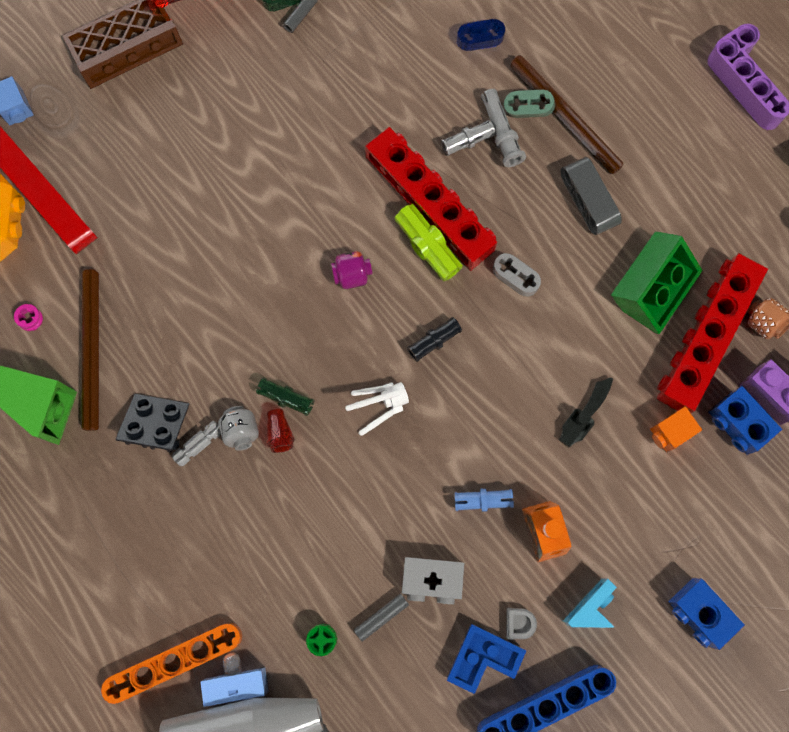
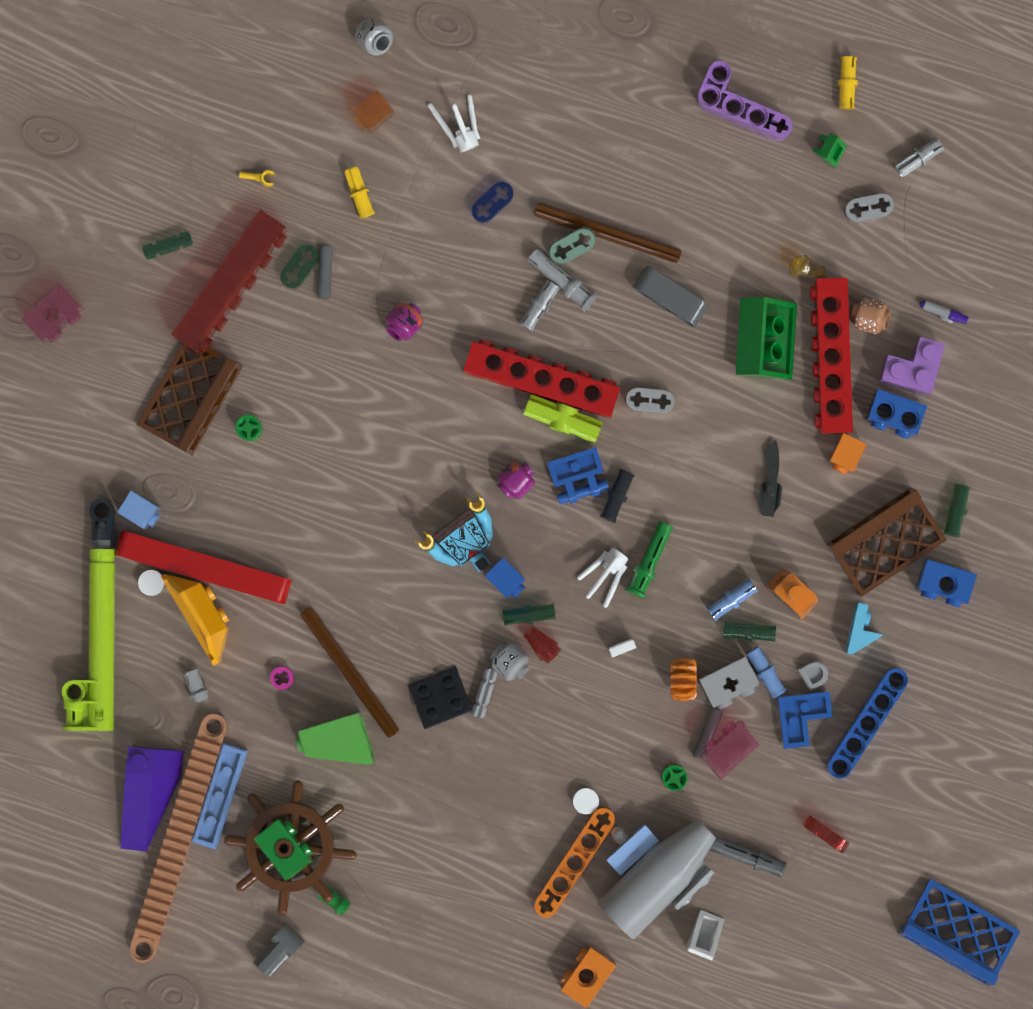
camera: 30 degrees left, 10 degrees up
(151, 83) = (248, 428): none -> green wheel
(223, 608) = (585, 801): none -> white tile
(269, 290) = (462, 538): none -> torso
(282, 347) = (506, 579): none -> blue brick
(341, 81) = (403, 321): none -> magenta head
(350, 480) = (622, 647): none -> white tile
(390, 547) = (683, 679): none -> orange gear
(392, 645) = (729, 749): none -> clear pink bracket
(411, 292) = (574, 468): none -> blue plate
(414, 421) = (644, 571): none -> green pin
(474, 592) = (765, 672): none -> medium blue pin
(482, 542) = (750, 631): none -> clear green pin
(663, 512) = (880, 520): none -> reddish brown fence
(726, 239) = (800, 266): none -> clear yellow plate
(753, 549) = (957, 510): none -> clear green pin

